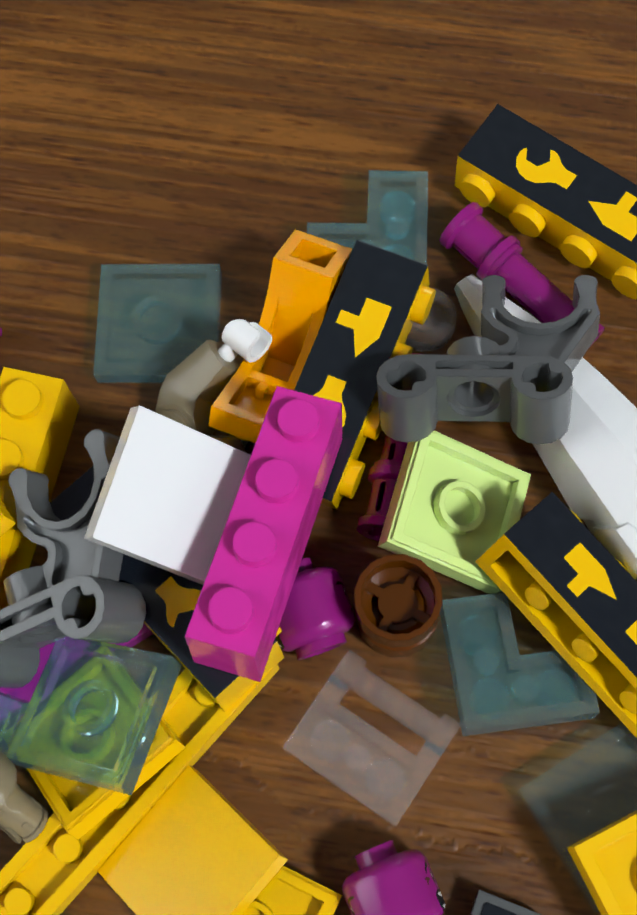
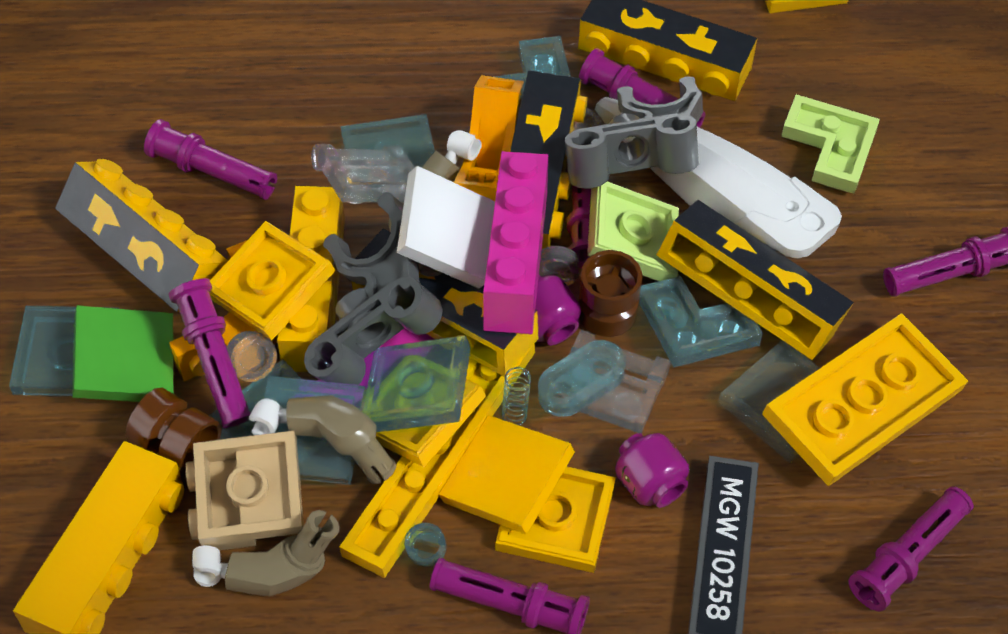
camera: 20 degrees left, 15 degrees down
(105, 379) = (363, 173): none -> clear plate
(221, 736) = (516, 389): none -> clear light blue piece
(320, 742) = (577, 379): none -> clear light blue plate
(338, 543) = (559, 262): none -> clear tile

